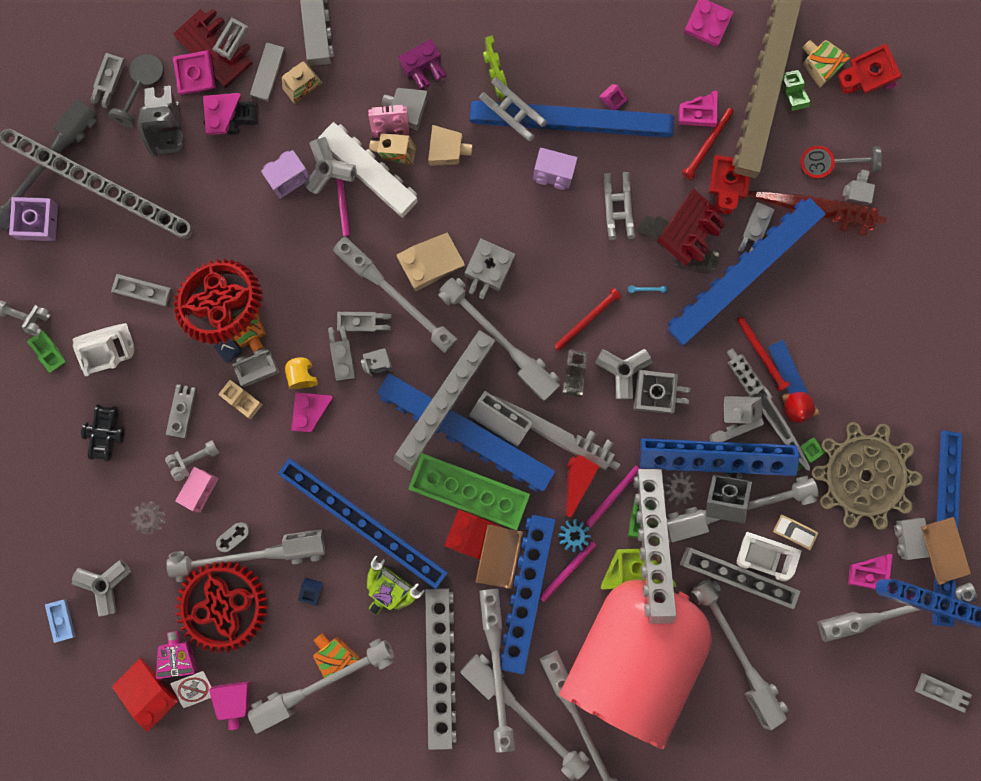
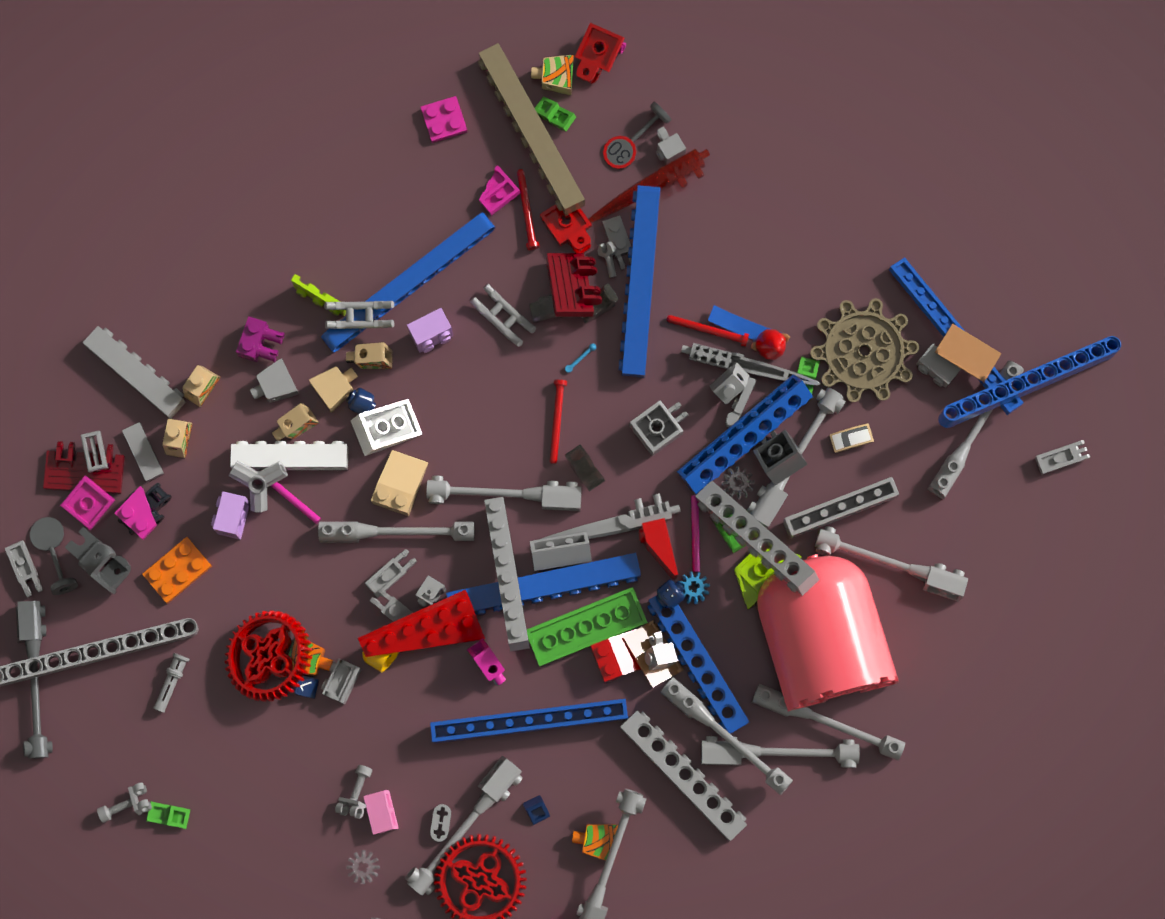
camera: 40 degrees left, 5 degrees down
(33, 219) = (67, 723): lavender brick -> none
(97, 350) = (211, 771): white piece -> none
(102, 439) = (265, 830): black axle -> none
(141, 290) = (199, 703): light grey tile -> none
(142, 252) = (160, 704): none -> light grey pin
(181, 411) = (314, 766): light grey hinge -> none
(213, 179) = (177, 570): none -> orange plate
(240, 399) = (351, 715): tan slope -> none
(308, 410) = (410, 677): dark pink wing -> none
(351, 58) = (199, 385): none -> tan torso
(358, 390) = (436, 625): none -> red wing
(372, 451) = (487, 662): none -> dark pink torso
(389, 122) = (275, 407): bright pink hinge -> none
(389, 588) = (593, 752): torso -> none
(456, 176) = (360, 401): none -> dark blue head
(457, 211) = (386, 427): none -> white slope
(478, 271) = (446, 457): light grey hinge -> none
(494, 149) = (371, 356): none -> tan torso
(503, 563) = (660, 654): none -> brick
(552, 526) = (670, 594): none -> dark blue head
(567, 571) = (713, 618): dark pink bar -> none
(613, 97) = (424, 238): dark pink slope -> none
(623, 383) = (621, 422): light grey piece -> none
(738, 230) = (608, 255): none -> light grey bar
(764, 555) = (841, 475): white piece -> none
(869, 572) = (927, 422): dark pink wing -> none

